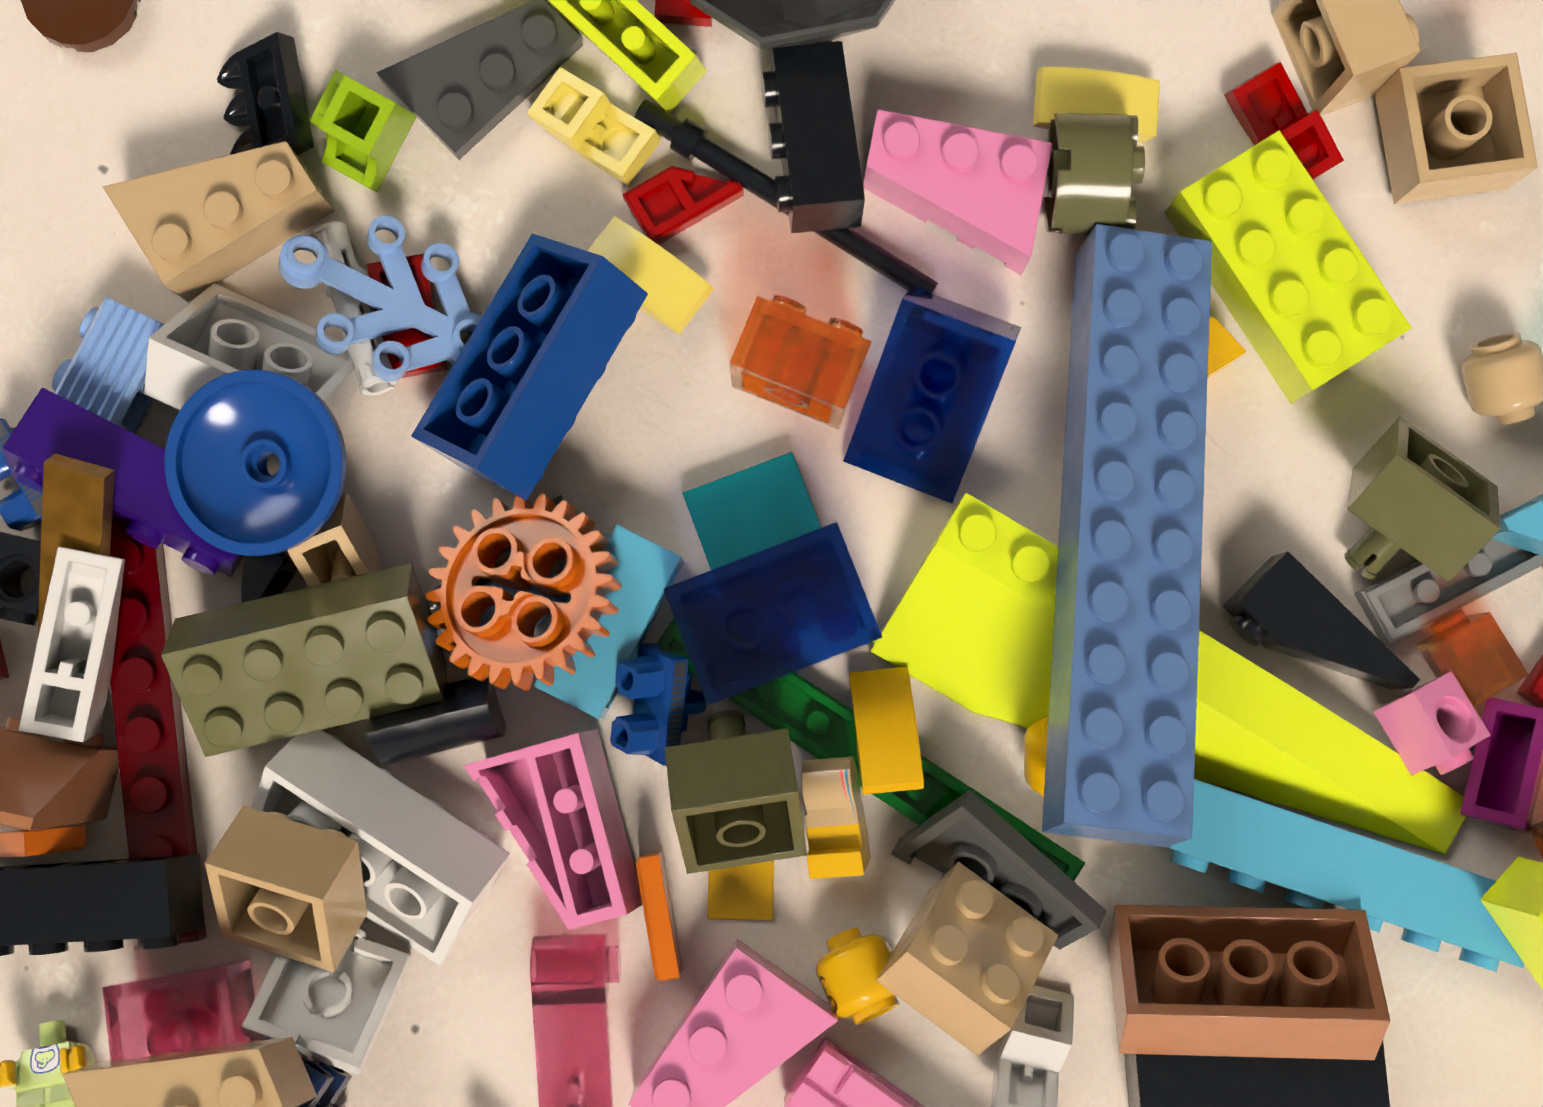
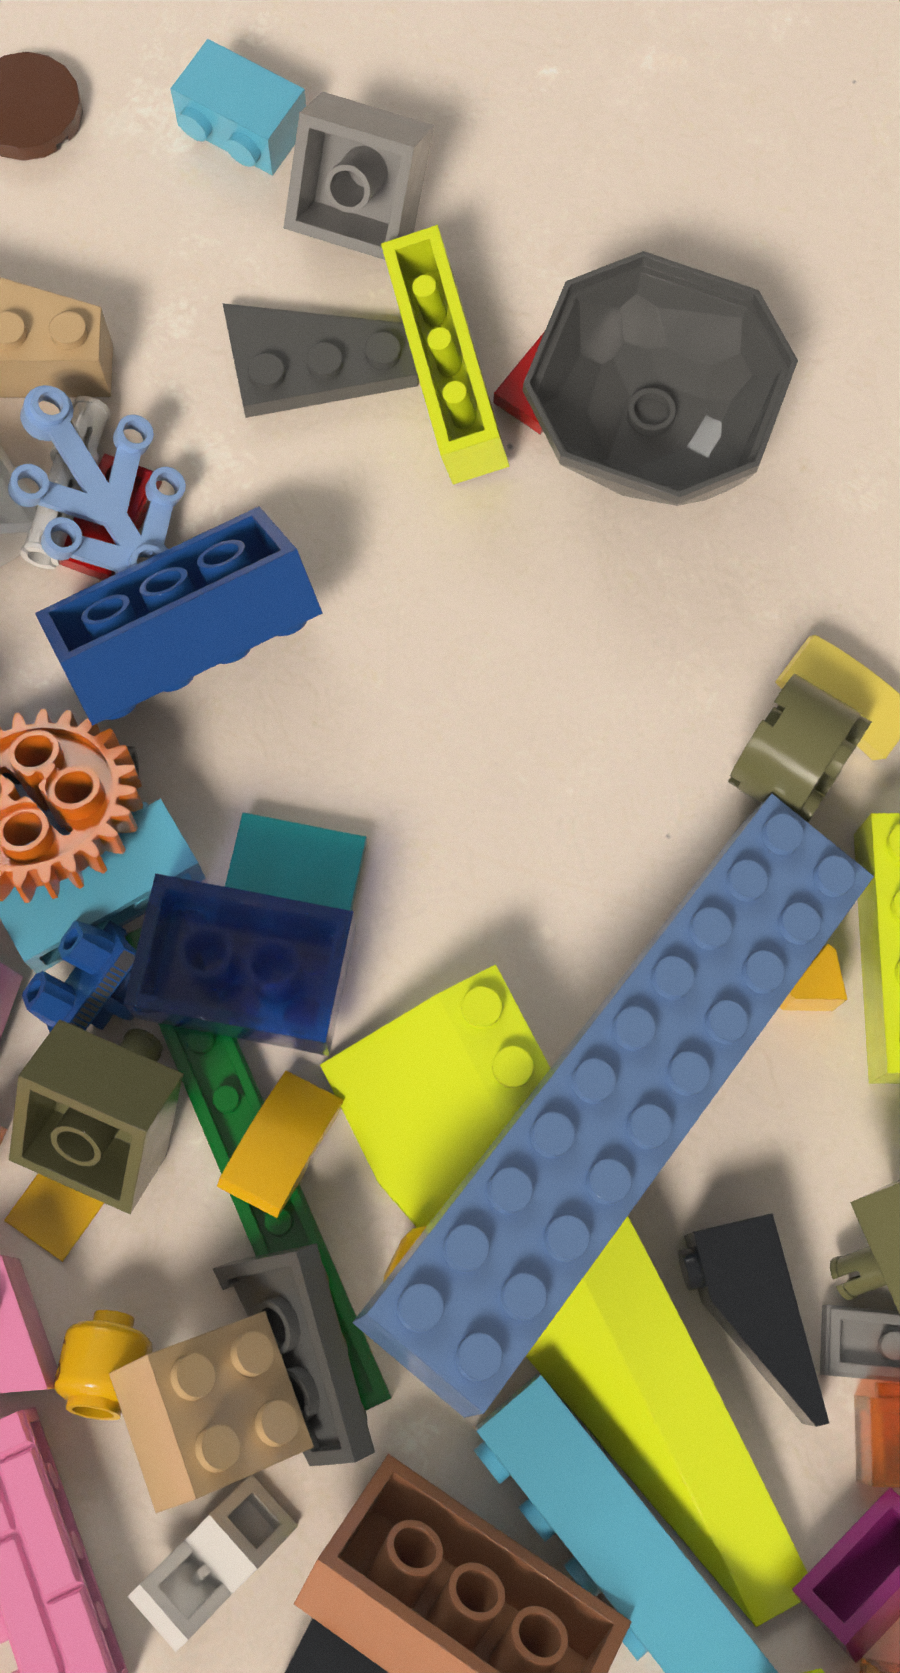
camera: 30 degrees right, 10 degrees down
(271, 95) = (122, 269): black plate -> none
(360, 130) = (176, 342): lime brick -> none
(593, 126) = (379, 455): light yellow slope -> none
(671, 286) = (349, 622): light yellow slope -> none
(677, 201) = (410, 561): red tile -> none
(692, 141) = (457, 518): black bar -> none
(799, 360) = (421, 754): clear orange brick -> none
(814, 137) = (562, 572): black brick -> none
(834, 818) = (178, 1196): leg -> none
(931, 393) = (528, 861): clear blue slope -> none
(963, 180) = (676, 687): bright pink wedge -> none
(1433, 725) = (817, 1480): bright pink brick -> none

